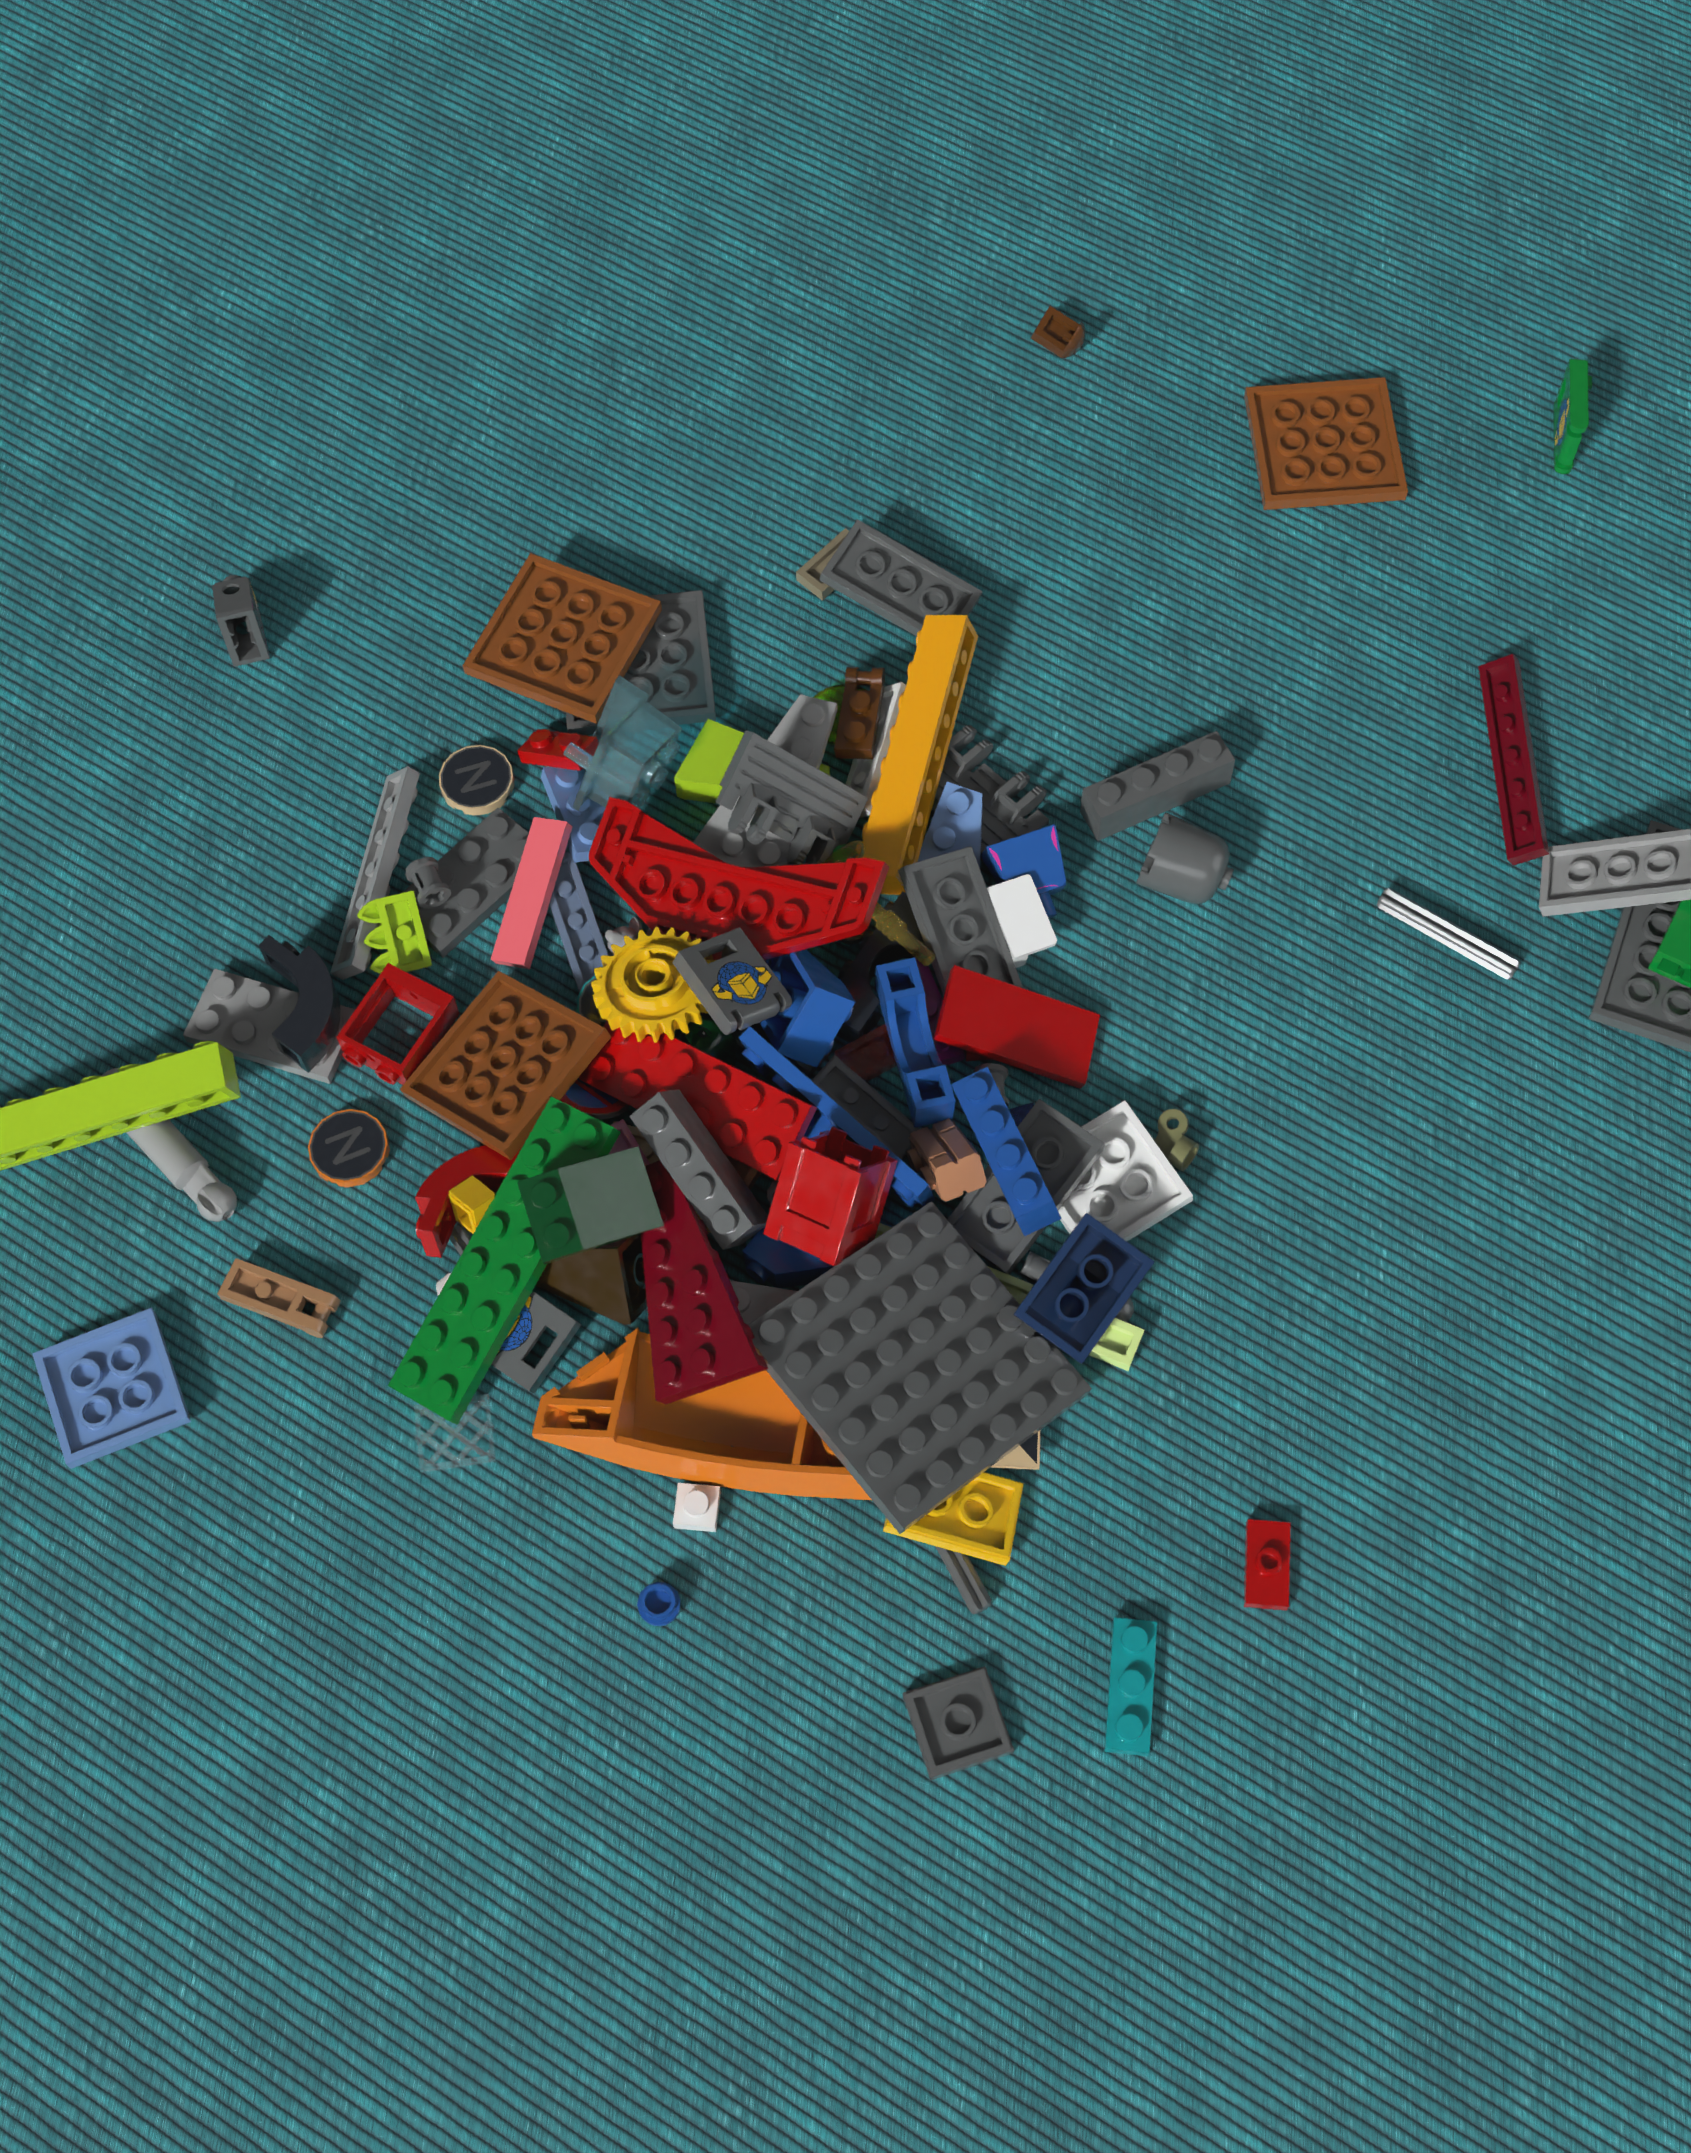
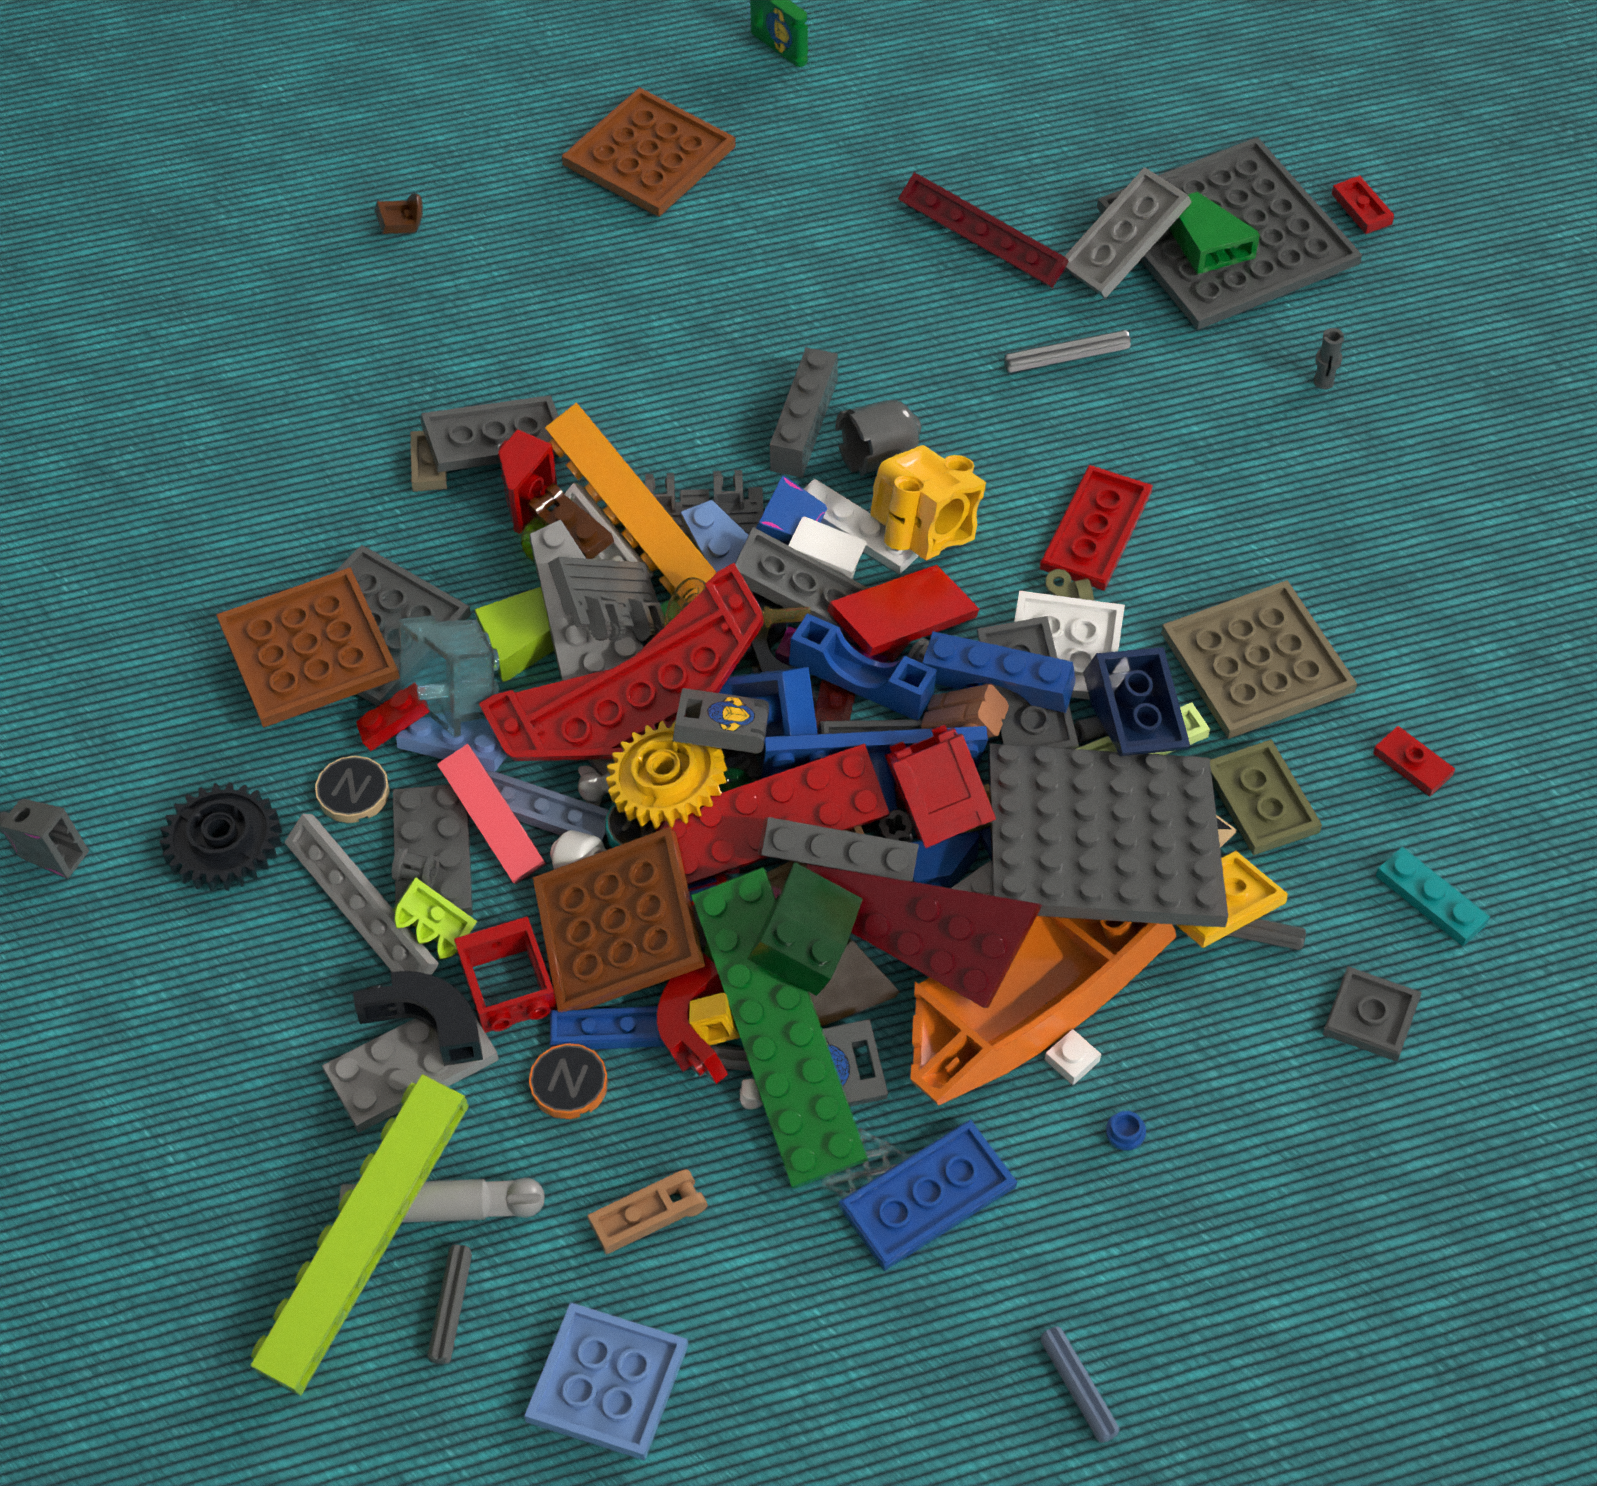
camera: 50 degrees left, 10 degrees down
(90, 1225) = (449, 1304): none -> dark grey axle
(377, 733) = (193, 843): none -> black gear
(390, 1745) = (1079, 1384): none -> sand blue axle
(414, 1129) = (606, 1028): none -> blue tile
(468, 1494) = (927, 1194): none -> blue tile
(555, 980) = (574, 847): none -> white head
(869, 639) = (526, 473): none -> red slope
(1084, 924) = (856, 521): none -> white plate
(1100, 1464) = (1263, 797): none -> olive plate
(1140, 953) = (926, 501): none -> yellow piece
(1251, 1349) = (1258, 659): none -> dark tan plate
(1272, 1108) = (1097, 526): none -> red tile
(1655, 1153) = (1328, 358): none -> dark grey pin

